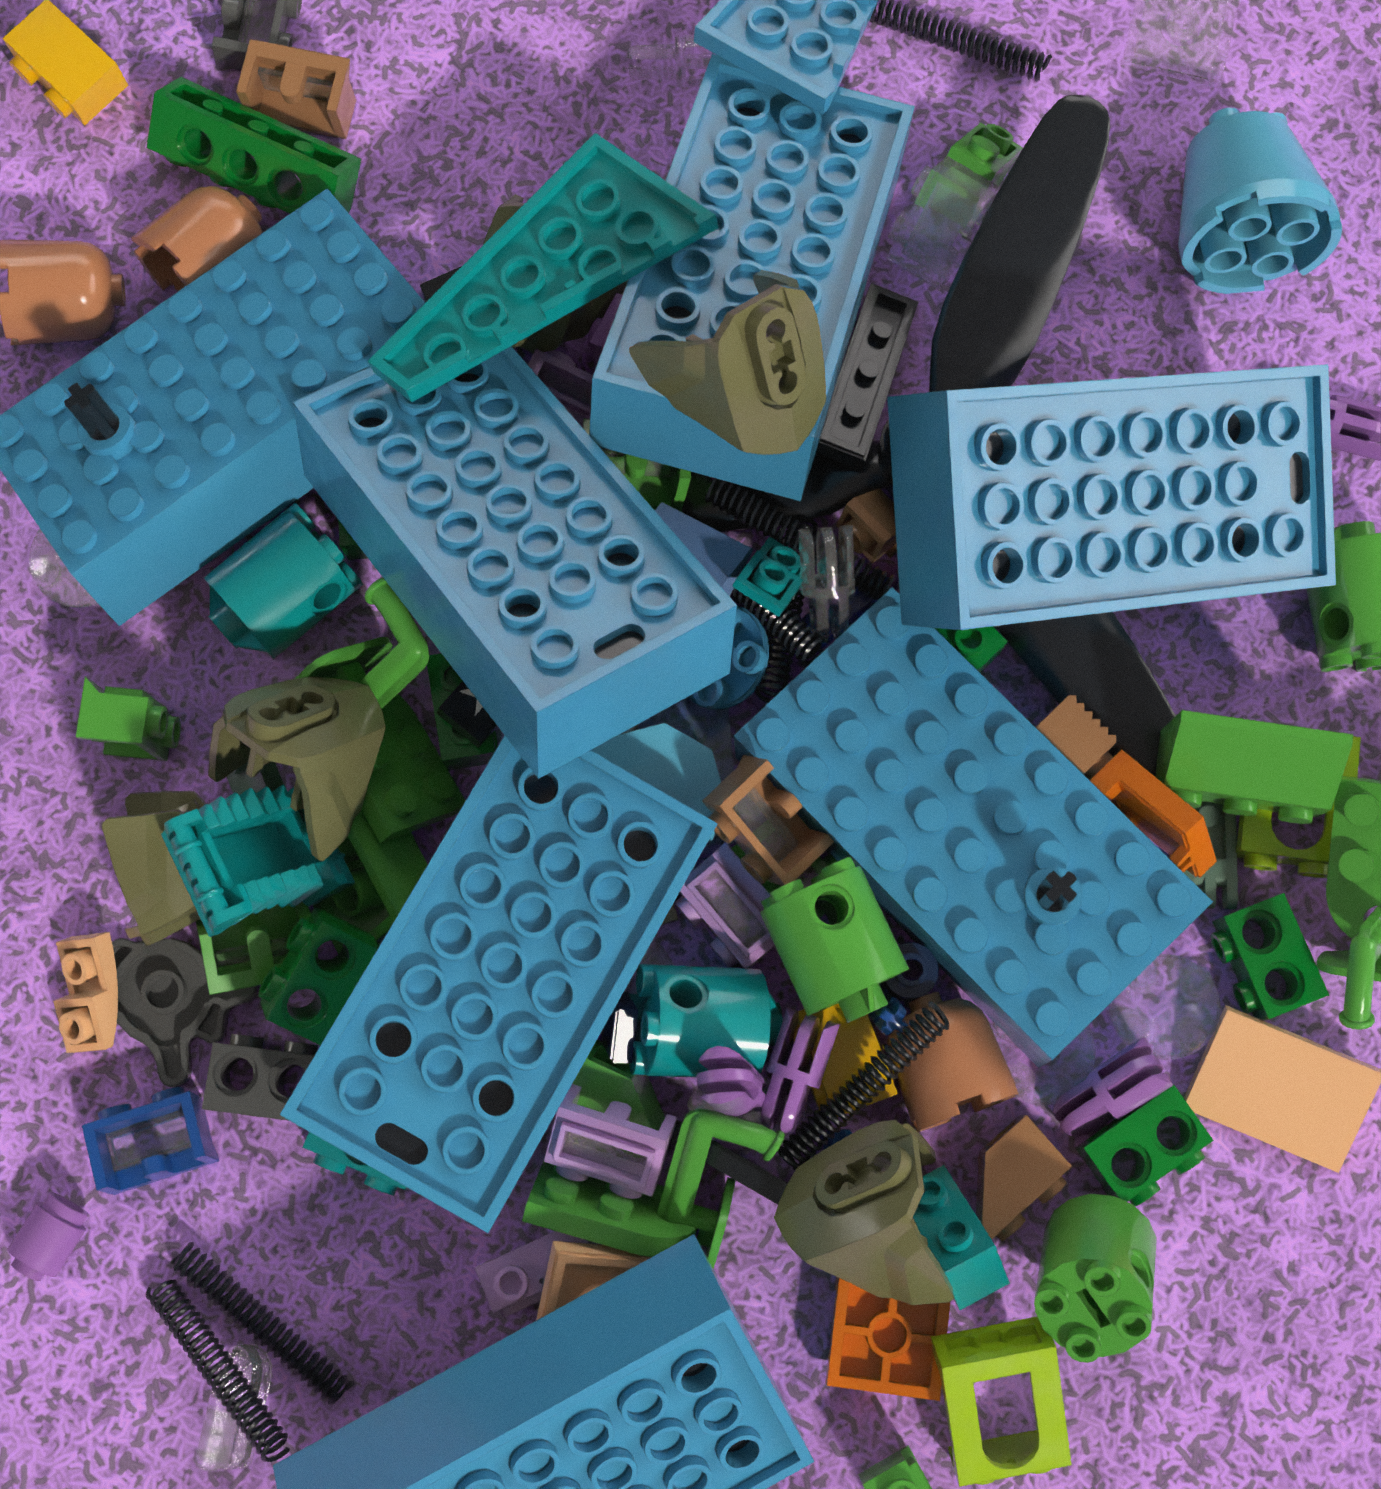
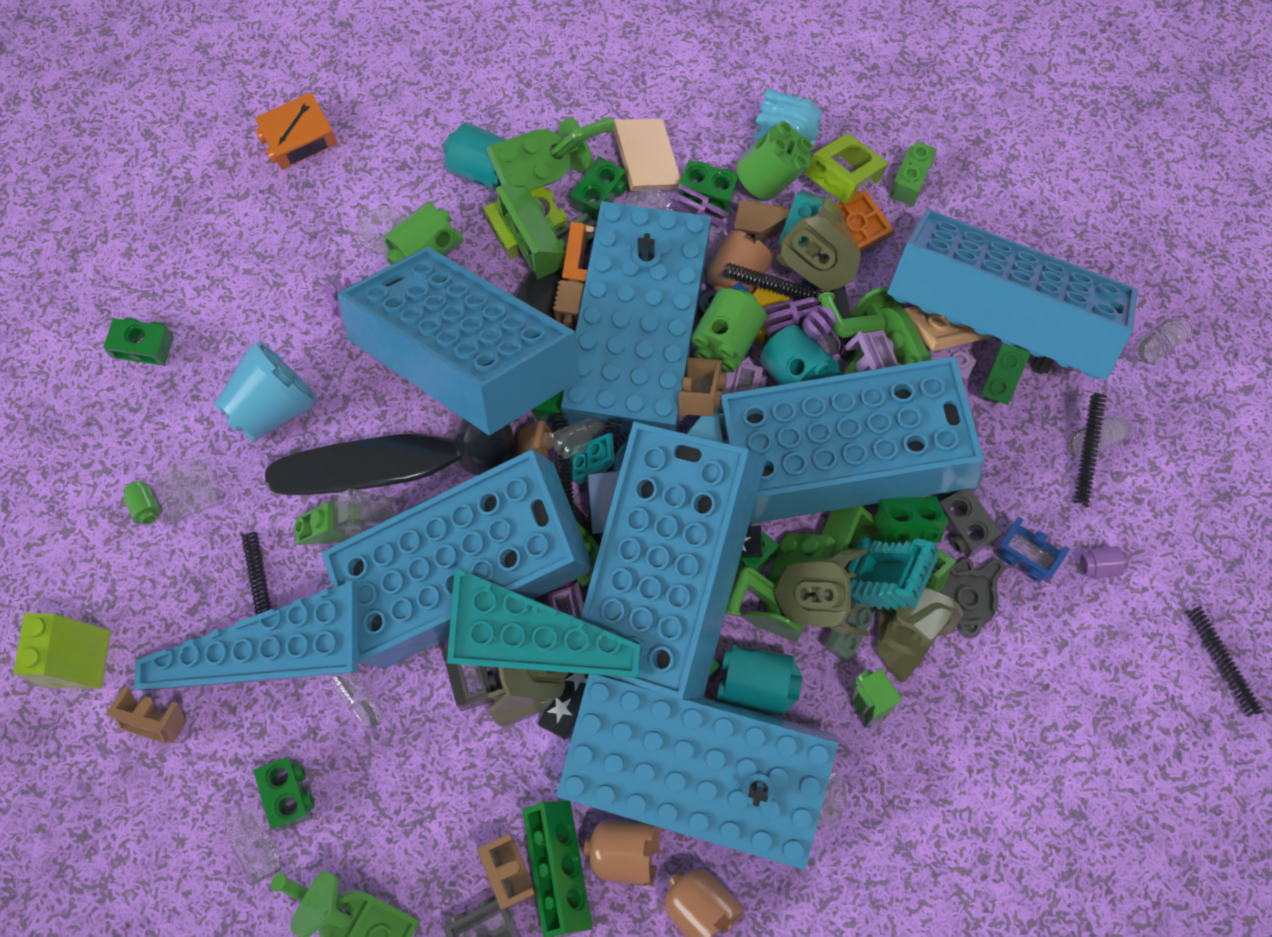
camera: 125 degrees left, 10 degrees down
(91, 1009) = (998, 624): light nougat slope -> none
(271, 1341) = (1059, 454): black piece -> none
(432, 1327) = (1005, 373): none -> green brick
(757, 376) = (539, 476): olive piece -> none
(1169, 1377) = (798, 112): none -> medium azure piece

